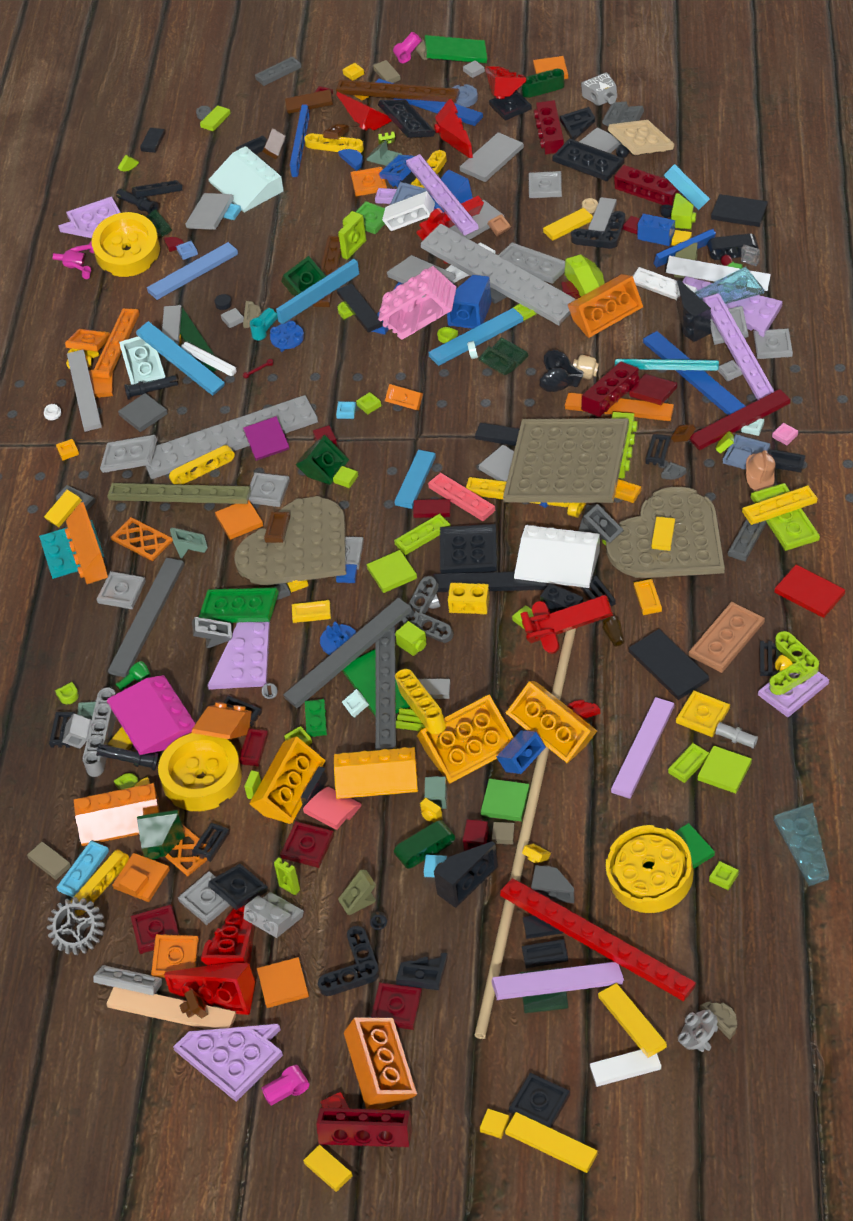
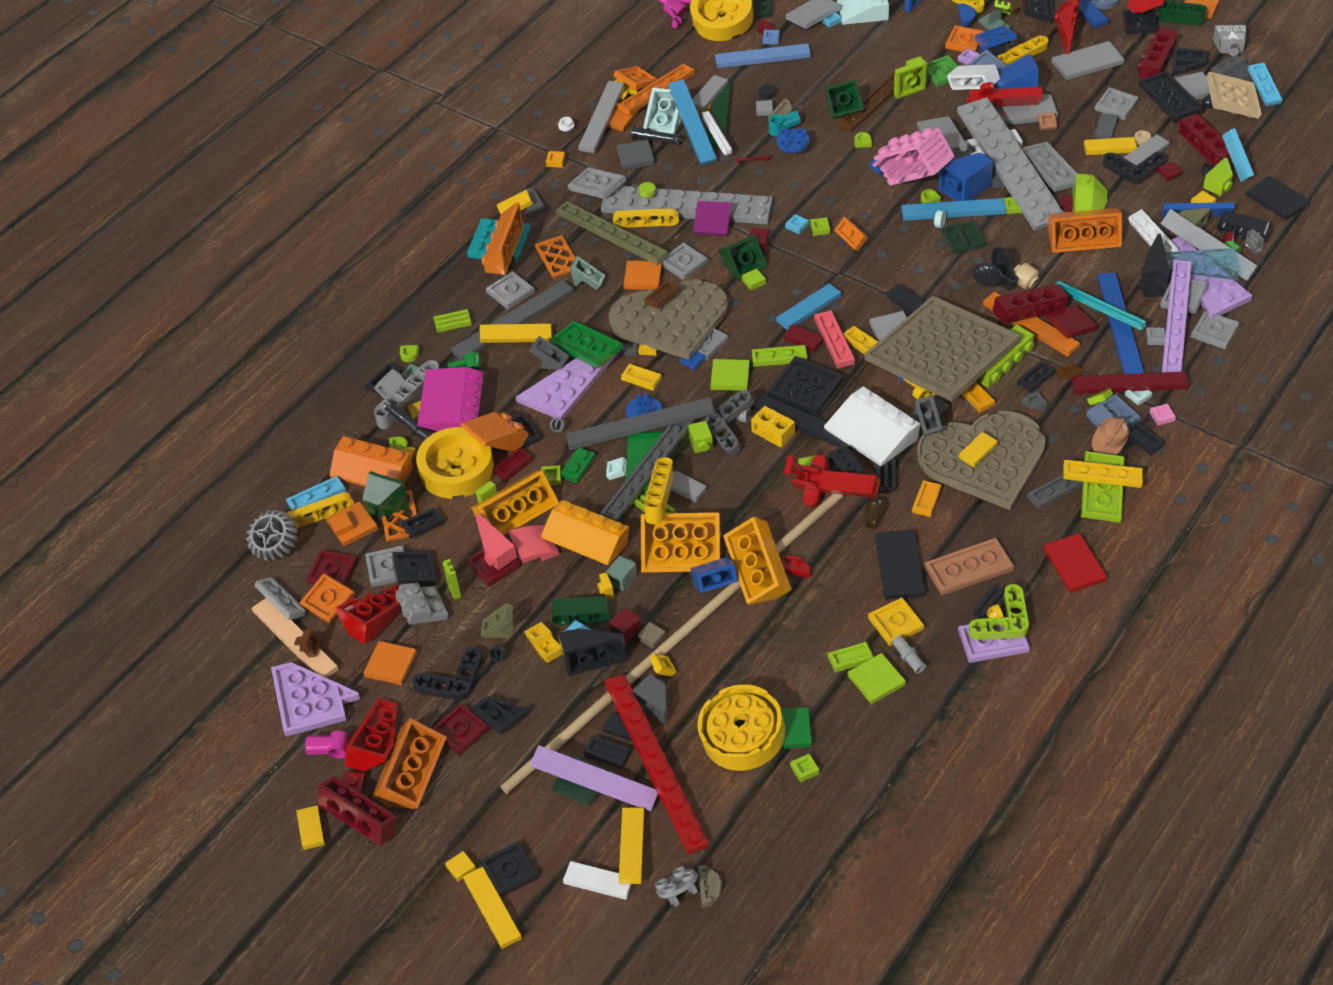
camera: 30 degrees right, 0 degrees up
(49, 860) = (296, 476): dark tan tile -> none
(85, 643) = (452, 320): none -> lime tile
(160, 626) = (514, 332): none -> yellow tile
(185, 439) = (647, 190): none -> lime tile
(219, 985) = (339, 637): red wedge -> none
(300, 825) = (497, 548): none -> coral slope
(315, 785) = (535, 517): black tile -> none
(317, 291) = (846, 113): dark azure tile -> none
(327, 1055) = (373, 738): none -> red wedge
(359, 308) = (871, 141): black tile -> none
(409, 889) = (543, 642): none -> yellow slope
(442, 195) = (1007, 73): lavender tile -> none
(505, 800) = (673, 608): bright green tile -> none
(551, 208) = (1106, 126): none -> dark grey tile
(642, 748) = (821, 624): lavender tile -> none
(656, 229) = (1183, 182): blue brick -> none
(657, 117) = (1265, 84): none -> medium azure tile
(802, 837) = (895, 775): clear light blue wing -> none

